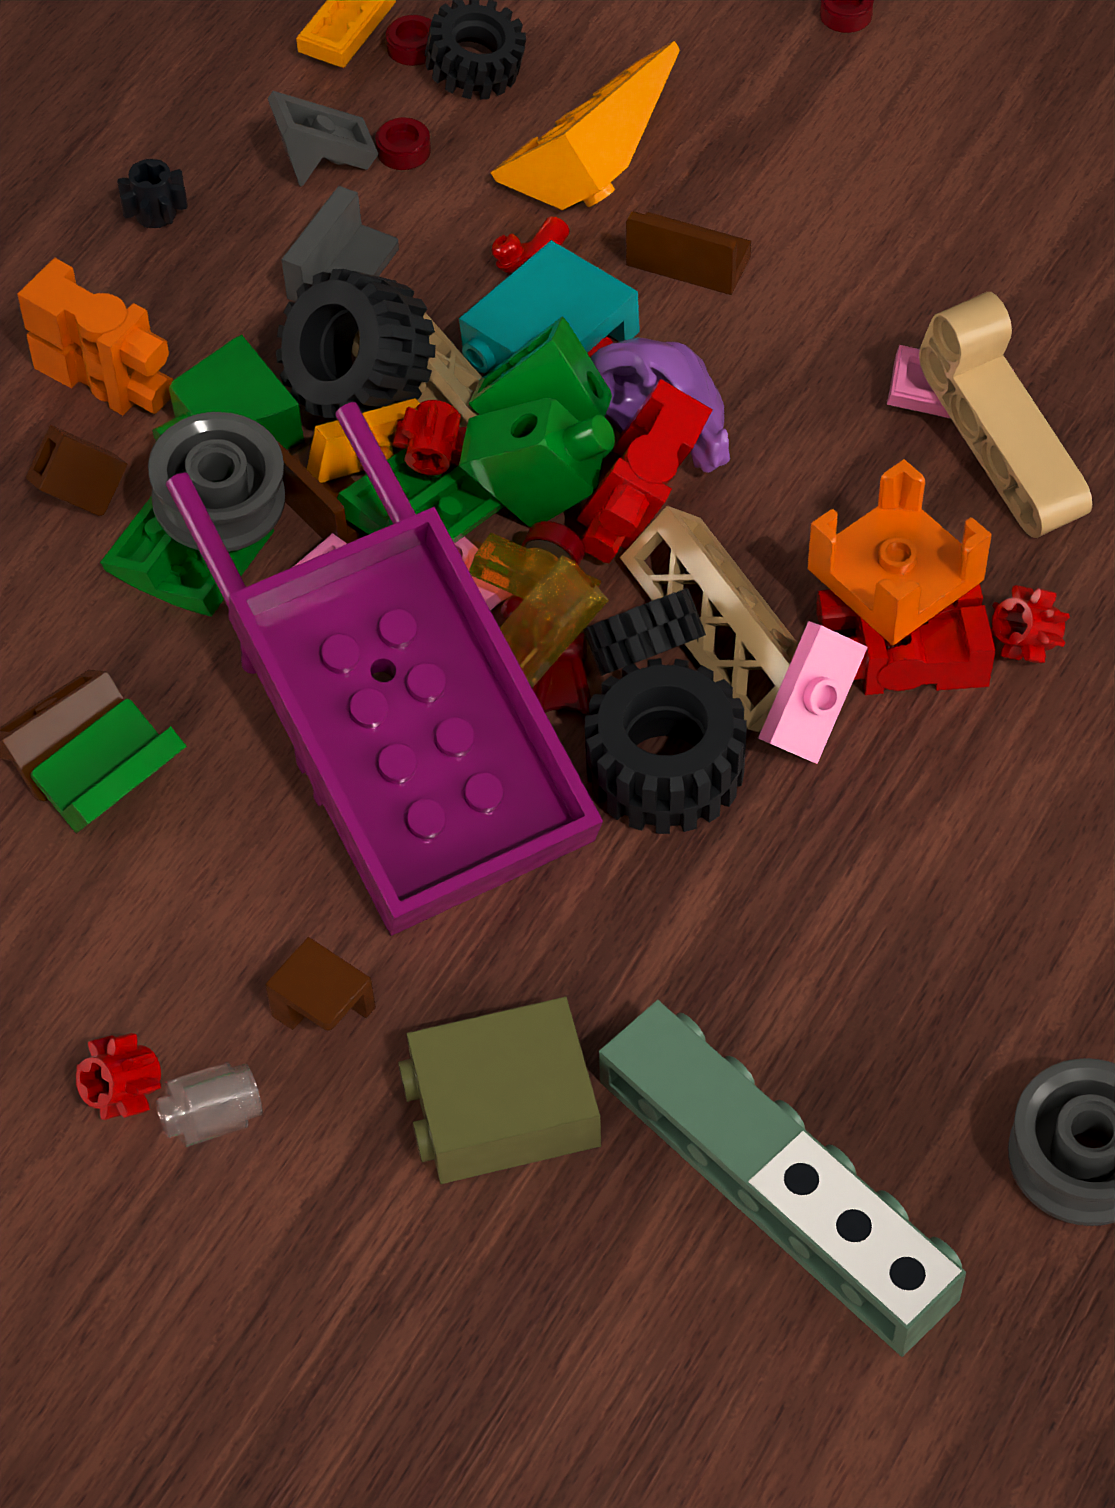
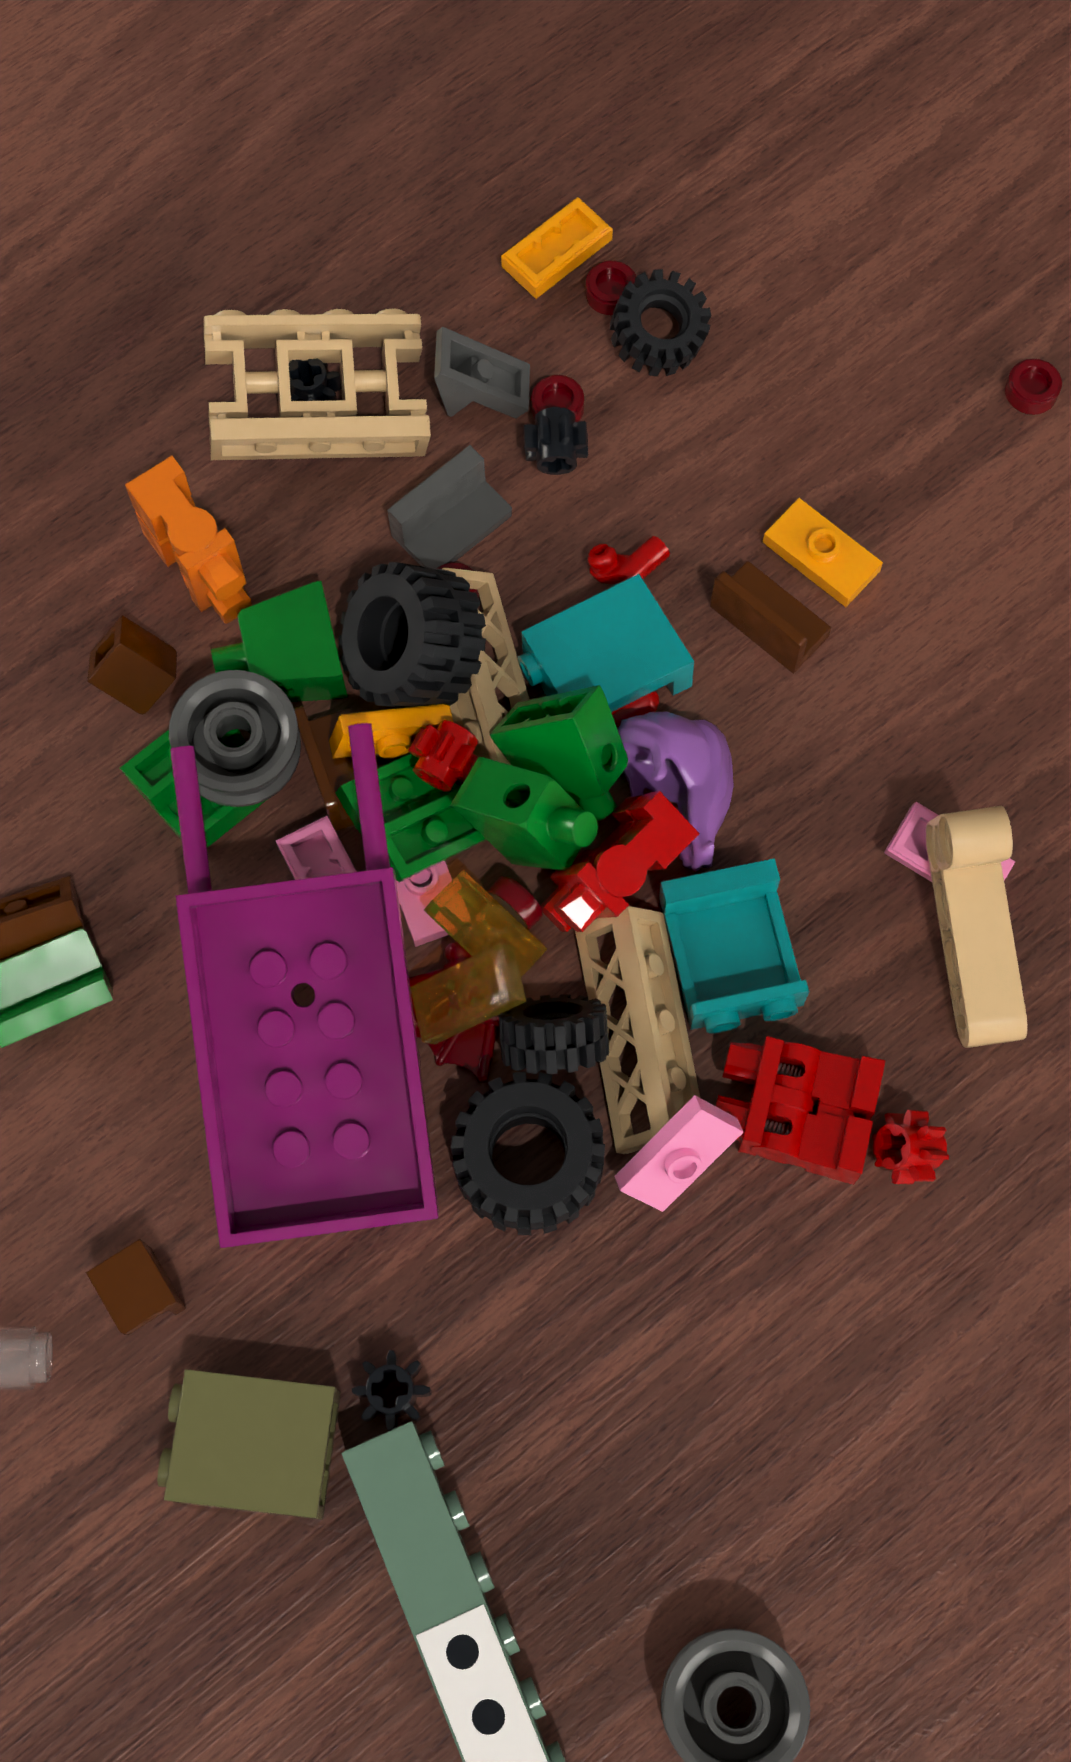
camera: 20 degrees right, 15 degrees up
(172, 218) = (315, 427): none -> tan fence
(418, 166) = (555, 441): none -> black gear
(591, 141) = (722, 474): light orange wedge -> none
(617, 979) = (379, 1379): none -> black gear
(713, 188) = (822, 552): none -> light orange plate
(763, 514) = (731, 946): none -> teal panel
(896, 559) = (808, 1051): orange panel -> none

